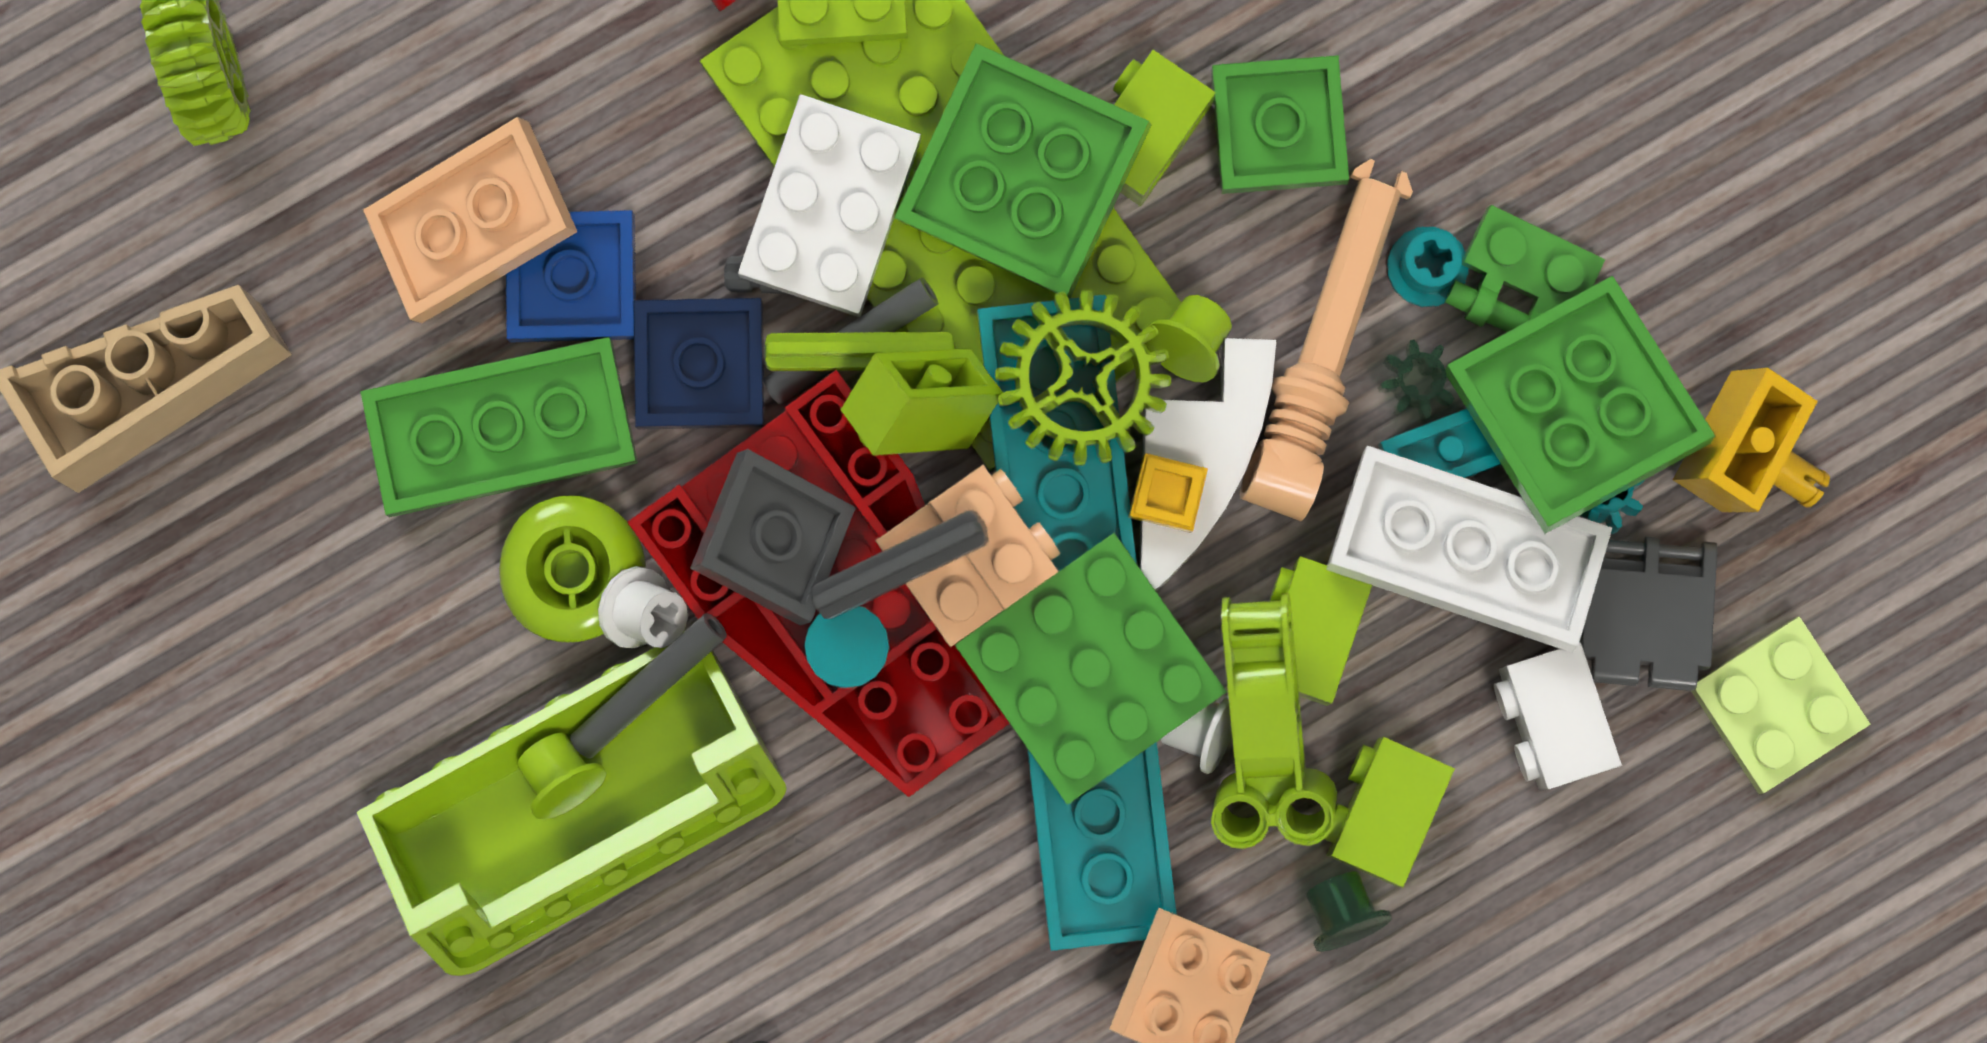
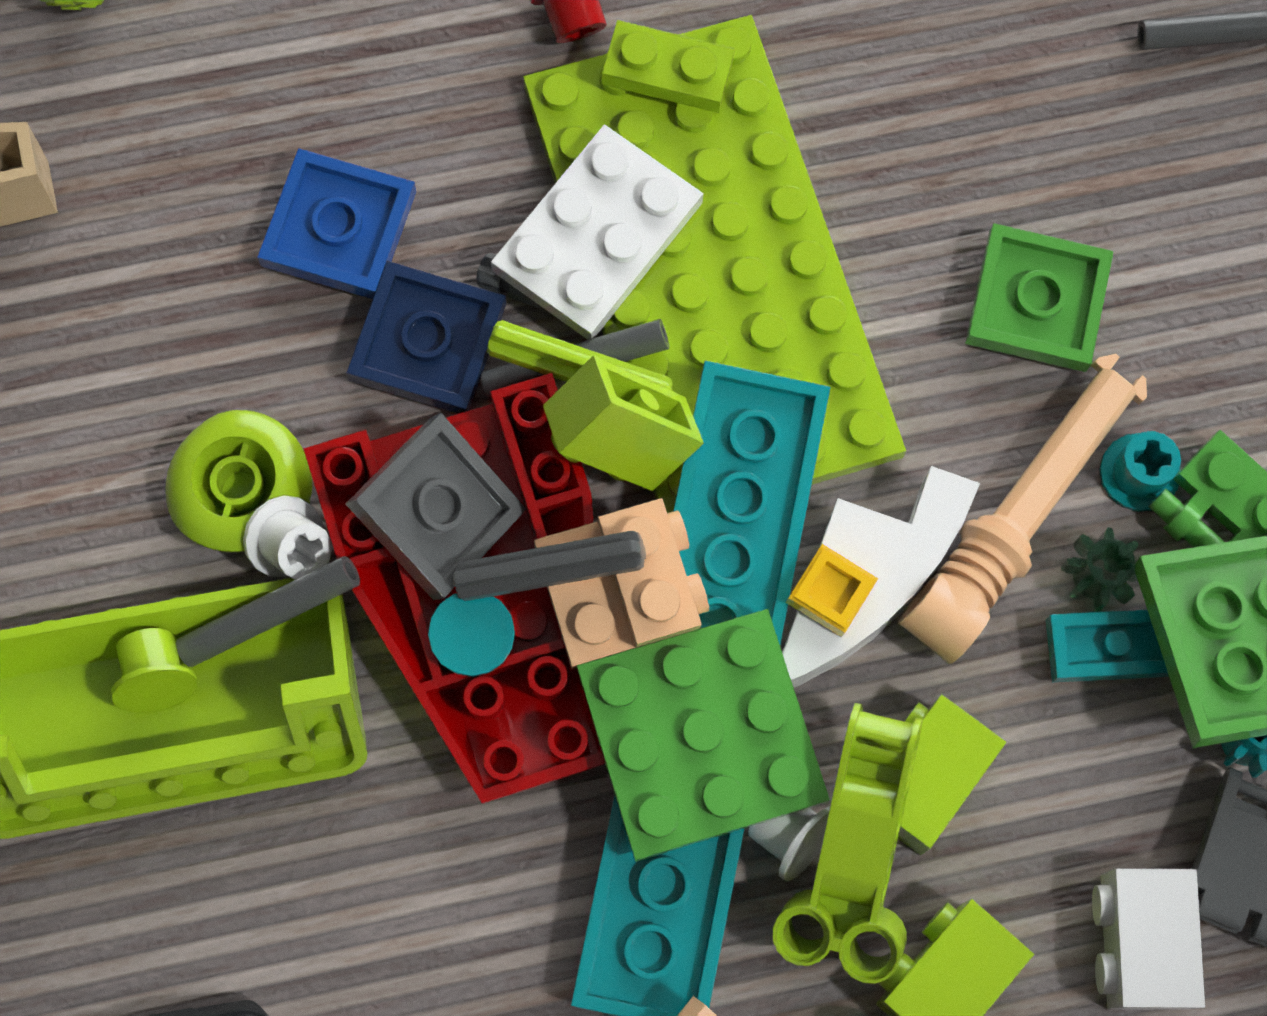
camera: 10 degrees right, 10 degrees down
(469, 220) = (262, 141): light nougat plate -> none
(498, 427) = (220, 335): bright green plate -> none
(1023, 170) = (788, 252): bright green plate -> none
(1129, 347) = (810, 441): lime gear -> none
(1173, 106) = (913, 258): lime brick -> none
(1192, 338) = (896, 458): lime piece -> none
(1467, 549) = (1111, 742): white plate -> none

